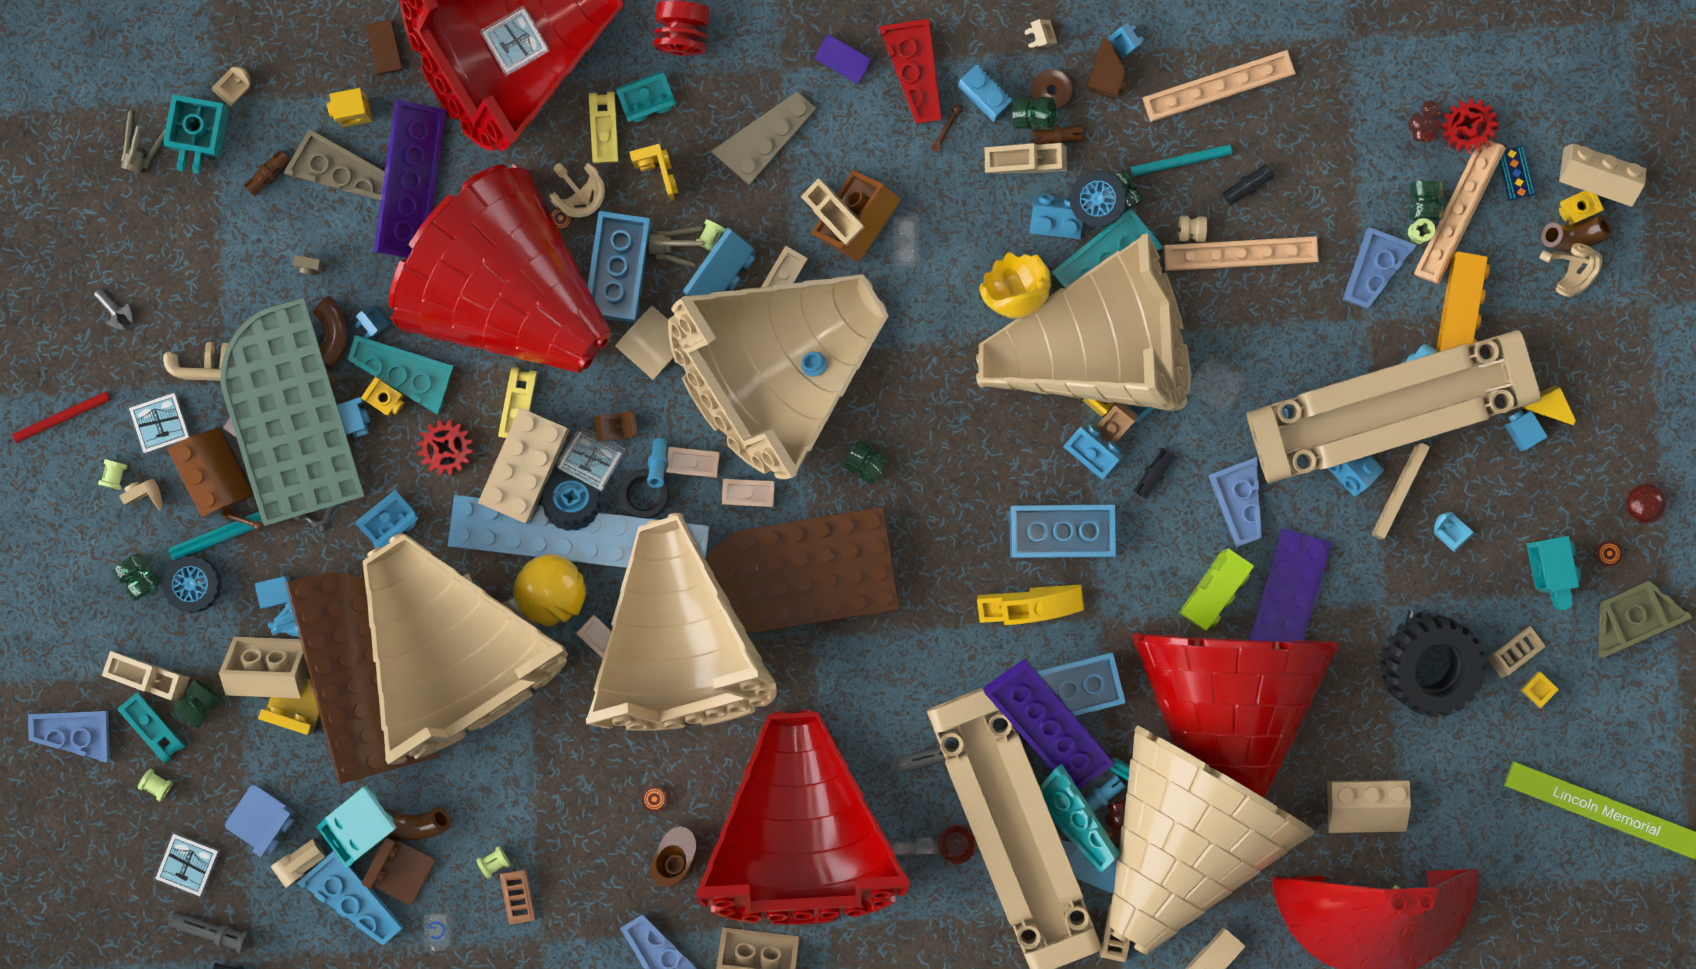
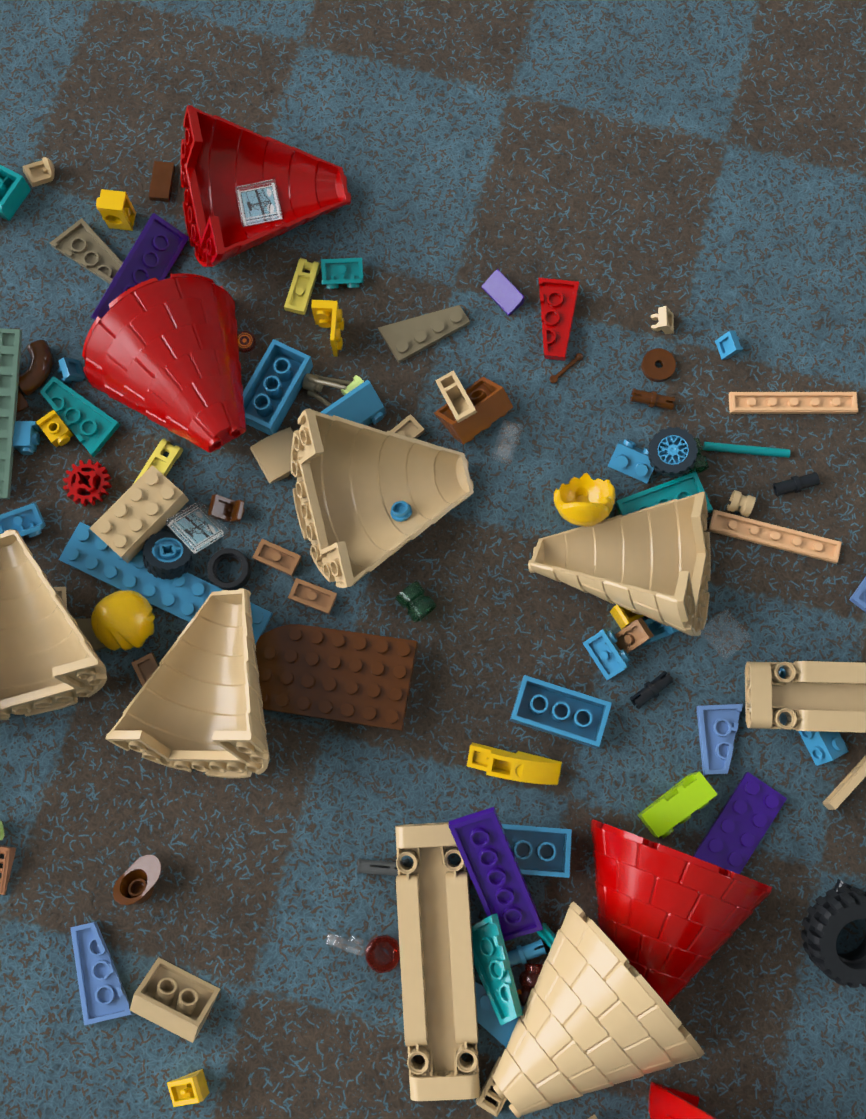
camera: 25 degrees right, 10 degrees down
(267, 173) = (37, 240): reddish brown pin -> none
(308, 265) = (39, 314): dark tan plate -> none
(581, 196) = (267, 332): tan helmet -> none
(654, 798) = (143, 824): clear red tile -> none
(657, 462) = (247, 547): dark azure pin -> none
(681, 33) = (386, 229): red wheel -> none
(799, 835) = (245, 899): red cone -> none
(984, 93) = (605, 349): dark azure brick -> none
(1026, 158) = (623, 408): tan slope -> none
(1036, 113) = (640, 374): clear green wheel -> none
(1107, 73) = (707, 364): reddish brown slope -> none
(1368, 806) = (757, 1045): tan slope -> none

